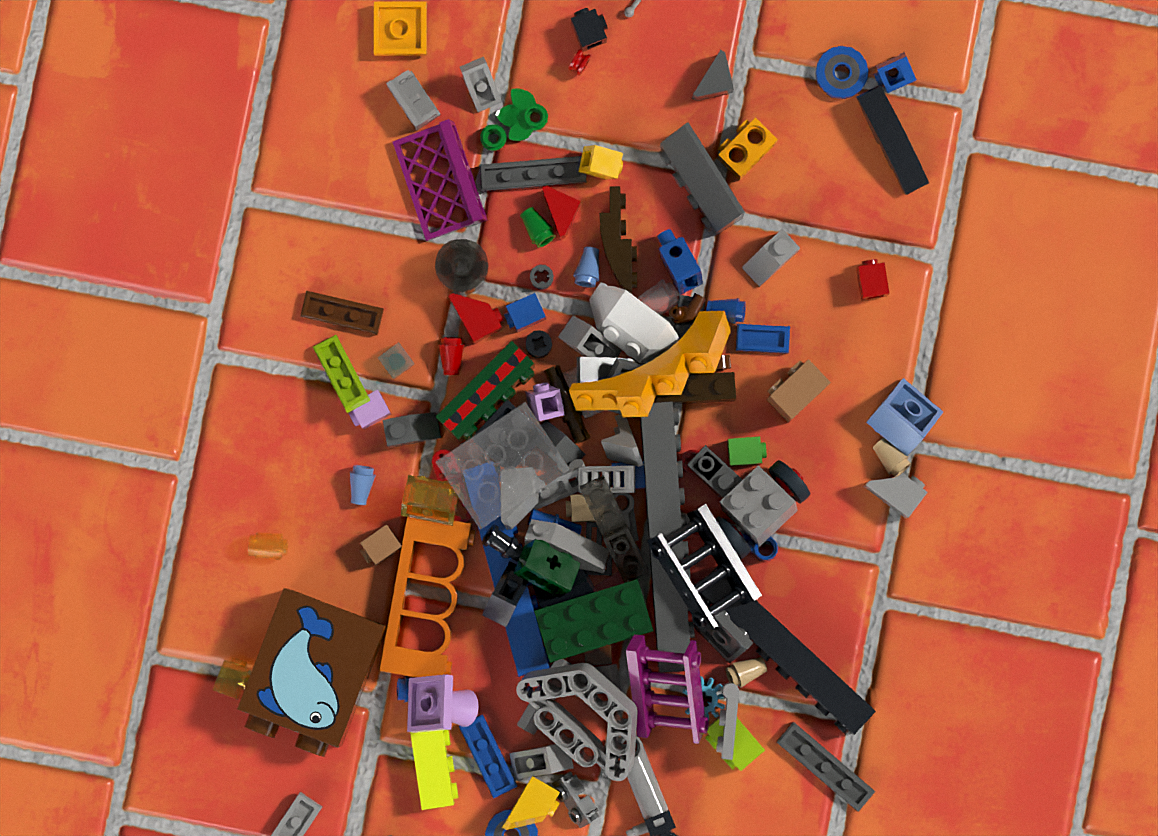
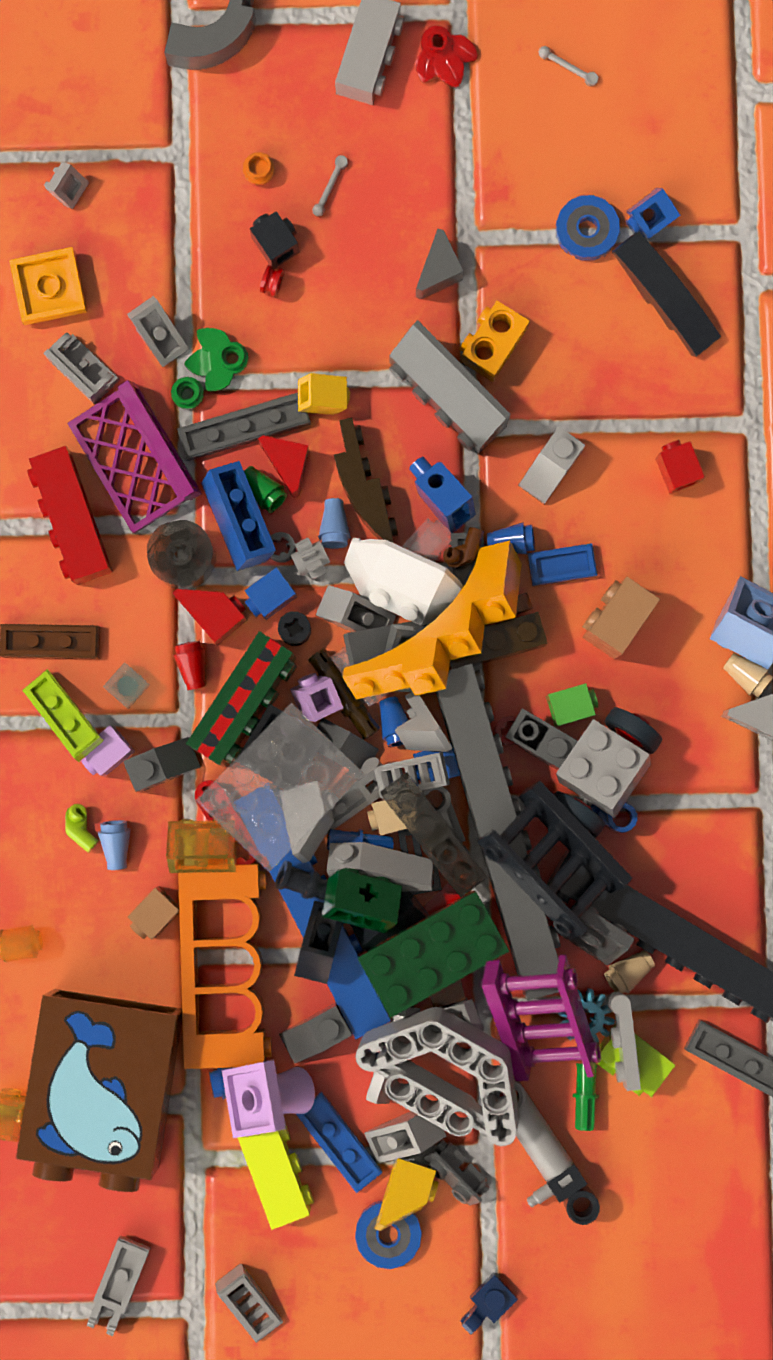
camera: 10 degrees left, 0 degrees up
(333, 463) = (77, 827): none -> lime arm
(380, 216) = (69, 515): none -> red brick
(487, 666) = (316, 1033): none -> dark grey slope
(513, 245) = (238, 516): none -> blue brick
(563, 291) = (310, 558): none -> light grey gear
(601, 430) = (391, 717): none -> blue cone
(689, 763) = (585, 1099): none -> green axle

